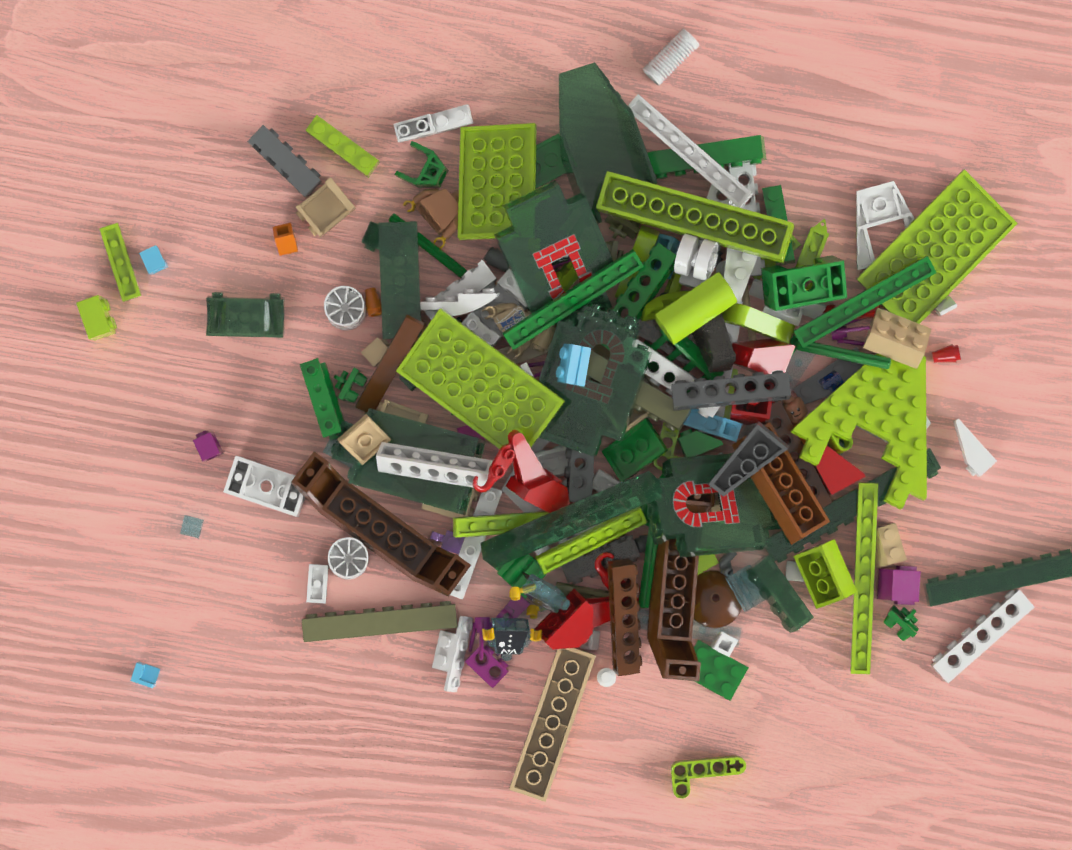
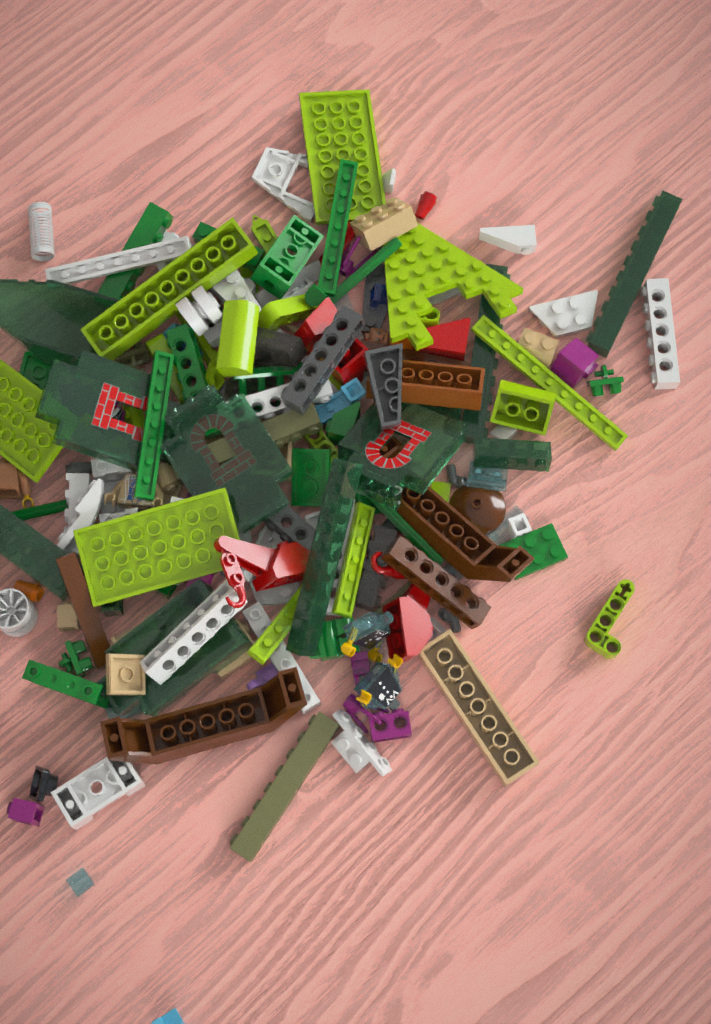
camera: 55 degrees left, 15 degrees down
(238, 440) = (42, 784): none -> black piece
(317, 583) = (212, 813): white plate -> none
(348, 558) = (211, 769): white wheel -> none
(573, 364) = (203, 461): medium azure brick -> none
(606, 677) = (474, 638): white plate -> none
(607, 652) = (450, 618): none -> dark grey arm
(787, 334) = (315, 296): none -> green tile
(941, 546) = (567, 314): none -> white wing

